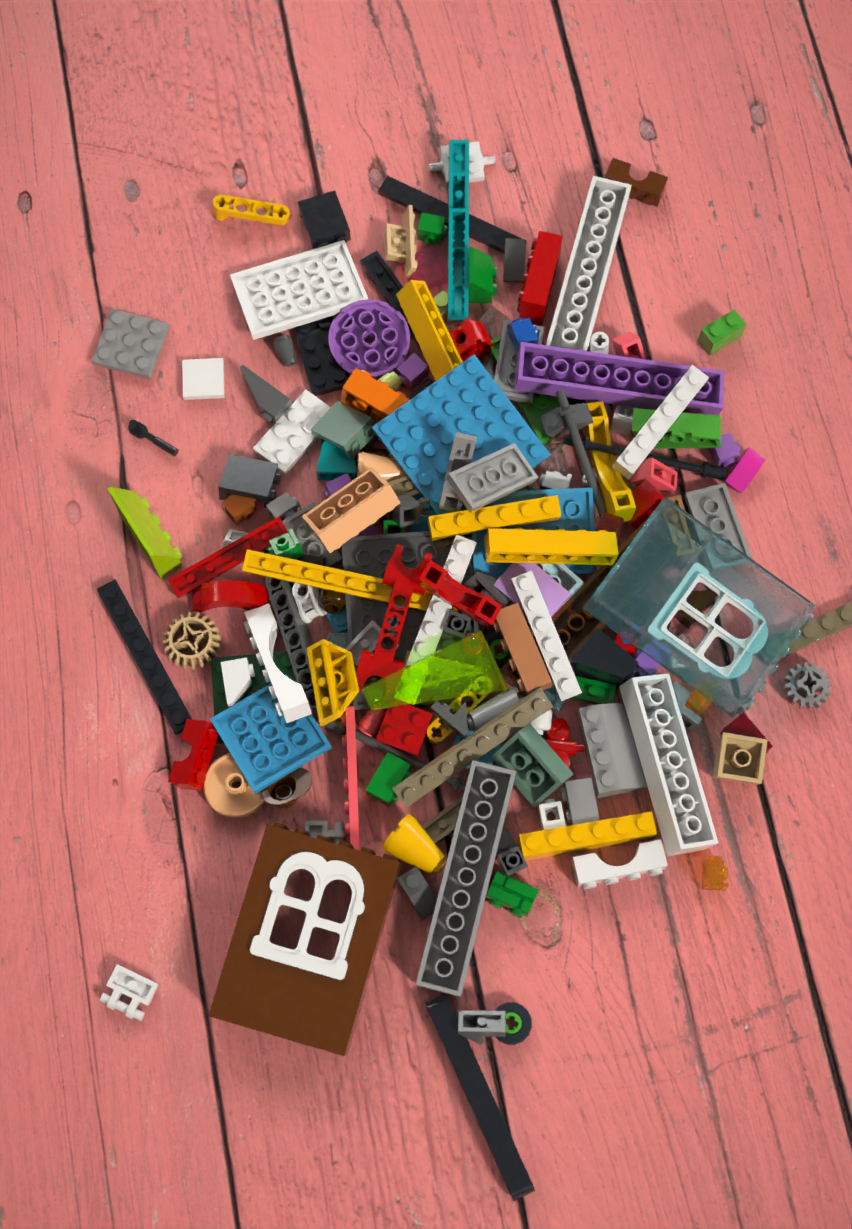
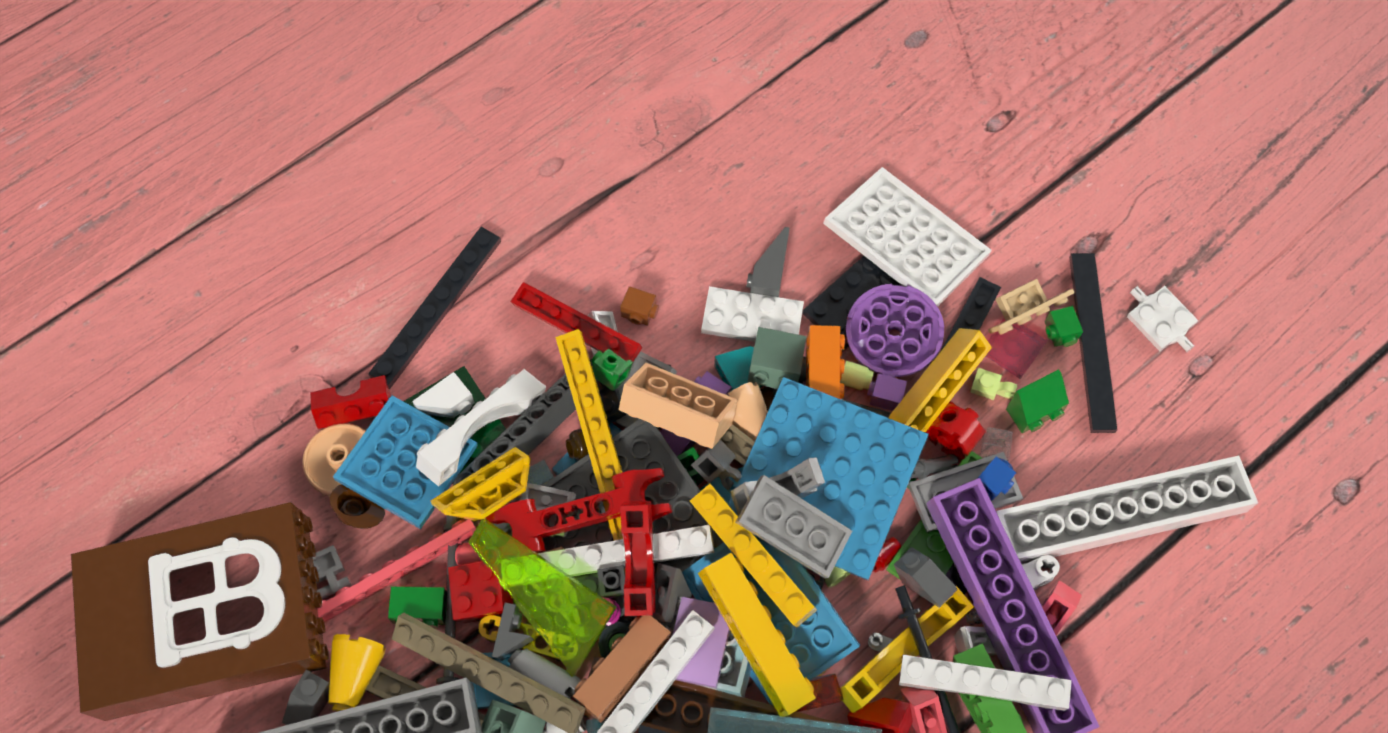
camera: 60 degrees right, 5 degrees down
(130, 344) = (754, 122): light grey plate -> none
(132, 985) = (90, 474): white plate -> none
(140, 431) = (667, 179): black piece -> none
(146, 530) = (558, 232): lime slope -> none
(183, 643) = (471, 325): tan gear -> none
(203, 378) = (757, 204): white tile -> none
(222, 210) = (949, 124): yellow beam -> none
(229, 594) = (536, 348): red arch -> none
(249, 479) = (670, 300): panel -> none
(283, 506) = (660, 347): light grey brick -> none
(285, 350) = (834, 260): dark grey cone -> none
(307, 604) = (567, 421): white piece -> none
(324, 219) = (1000, 219): black panel -> none
(458, 231) = (1078, 350): teal slope -> none
(514, 260) = (1083, 428): dark grey slope -> none
(539, 277) = (1079, 464): red brick -> none
(554, 480) = (849, 606): white brick -> none
(558, 460) = (878, 592): clear panel -> none
(567, 413) = (925, 571): dark grey bar -> none
(647, 190) = (1270, 529): reddish brown arch -> none
(721, 332) = (1151, 701): bright green brick -> none

